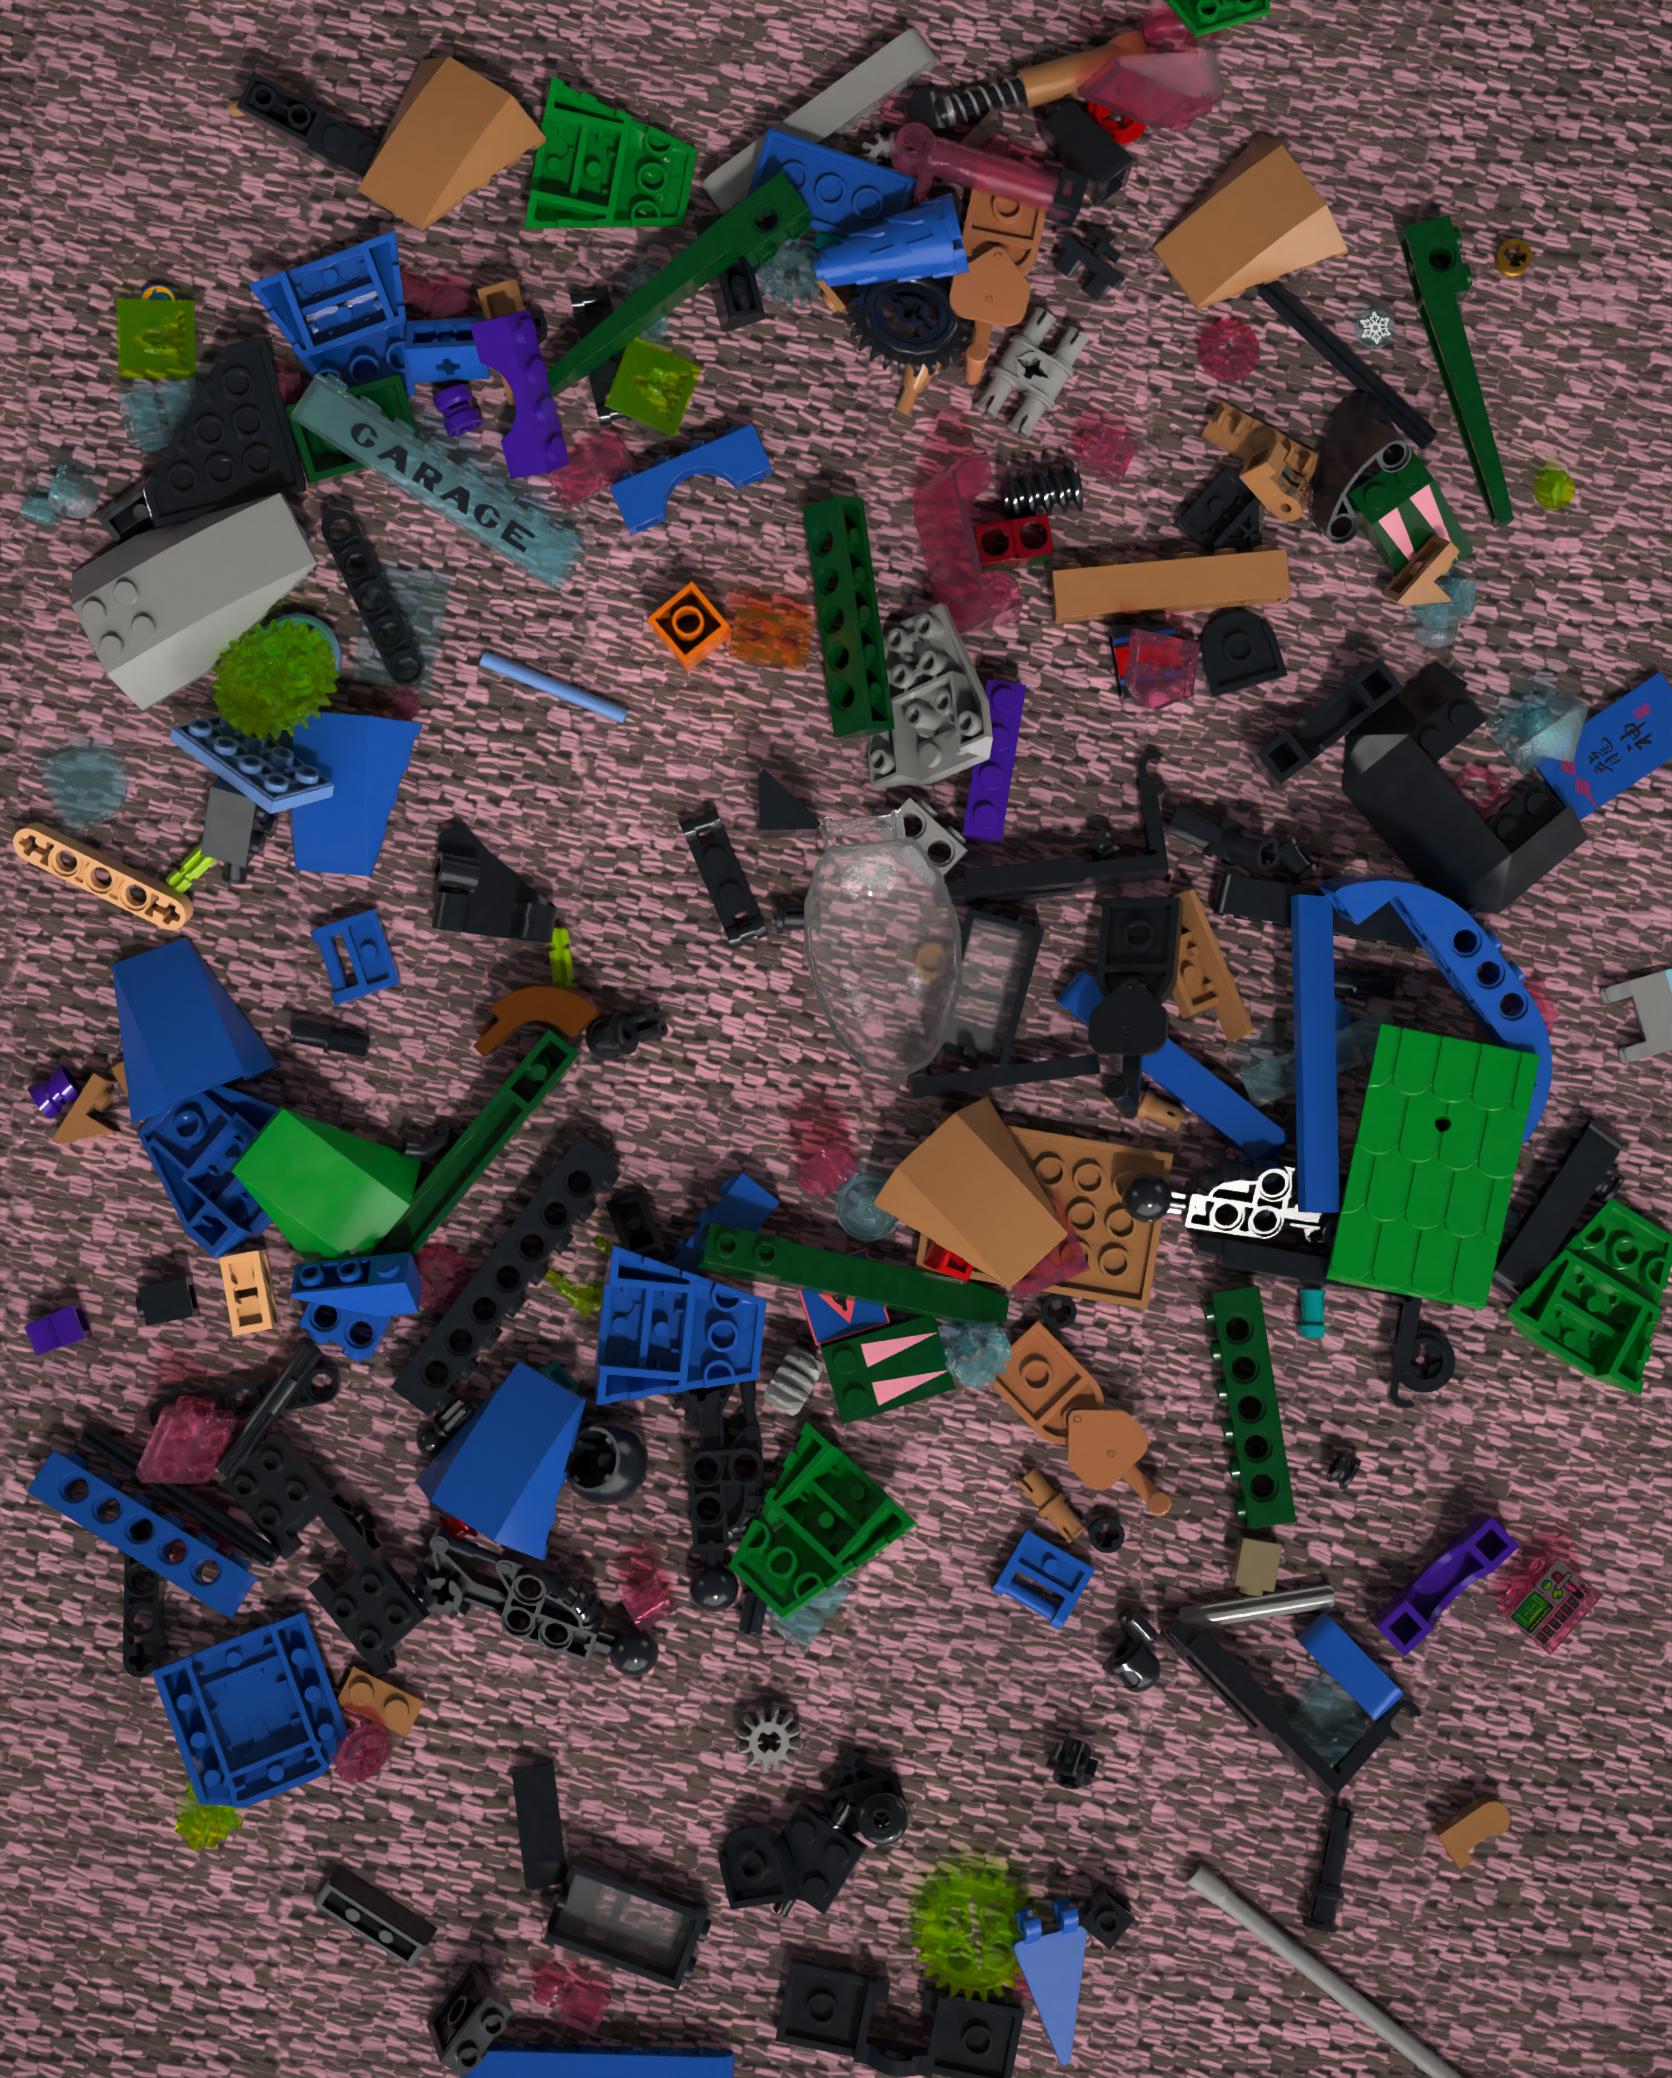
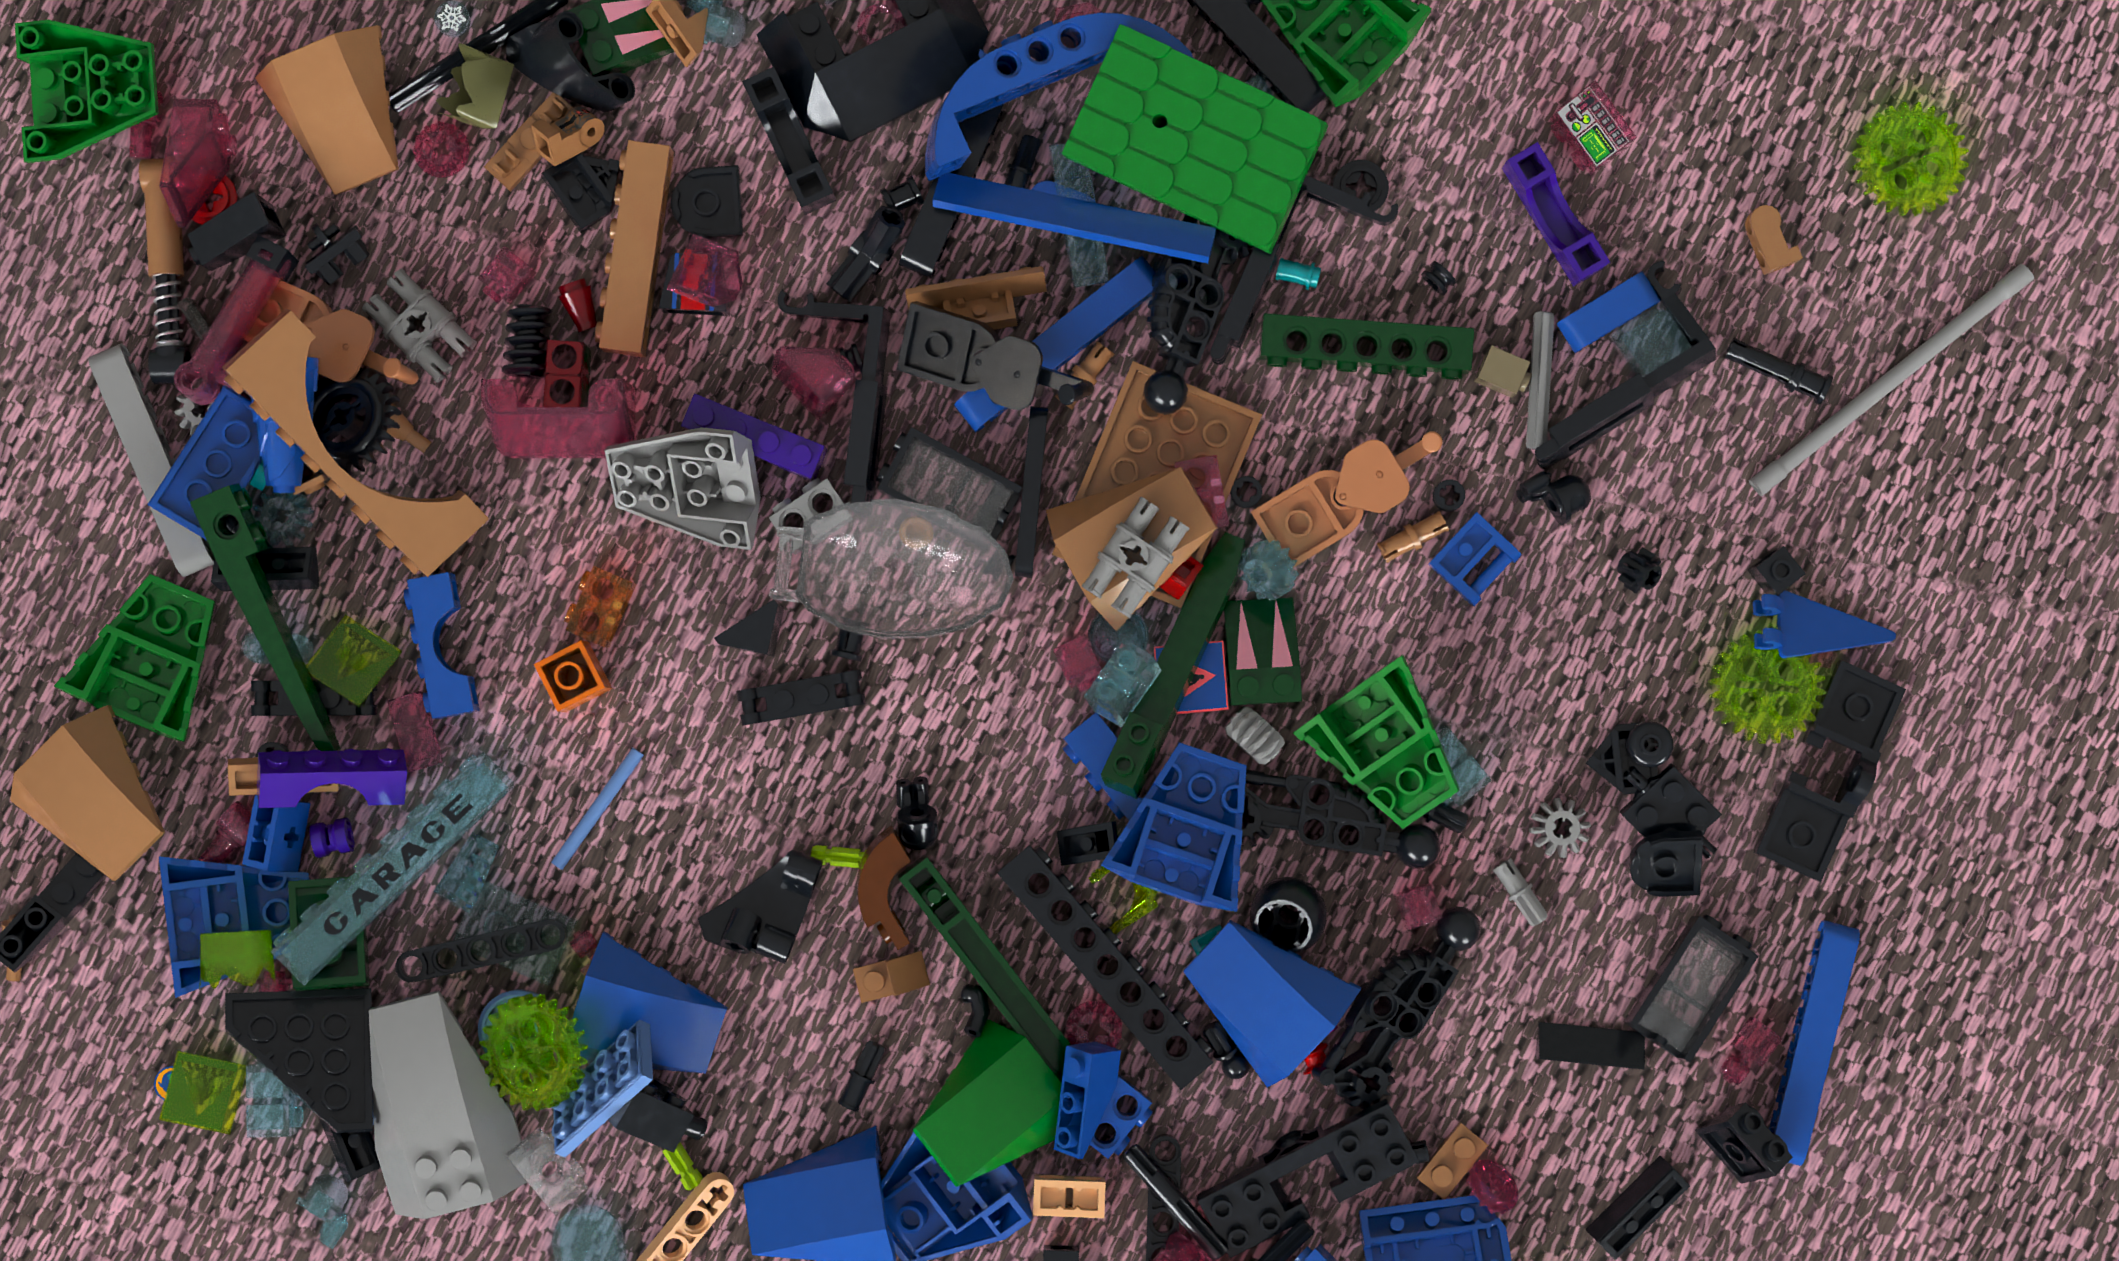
camera: 75 degrees left, 0 degrees up
(135, 738) = (556, 1189): none -> clear brick
(308, 337) = (237, 955): none -> clear neon green piece
(368, 954) = (795, 1025): blue plate -> none
(434, 565) = (462, 889): none -> clear light blue slope
(443, 1045) = (891, 976): none -> medium nougat slope
(689, 1711) = (1520, 892): none -> light grey axle
(816, 1223) = (1122, 683): none -> clear light blue brick
(848, 617) = (597, 535): dark green brick -> none
(936, 228) = (274, 376): none -> medium nougat arch
(963, 1228) = (1130, 538): none -> light grey pin
(1074, 811) = (814, 376): none -> clear pink slope
(1095, 538) = (579, 304): none -> dark red cone
(1304, 378) = (482, 89): none -> olive piece
(1627, 1944) = (1922, 186): none -> clear neon green gear

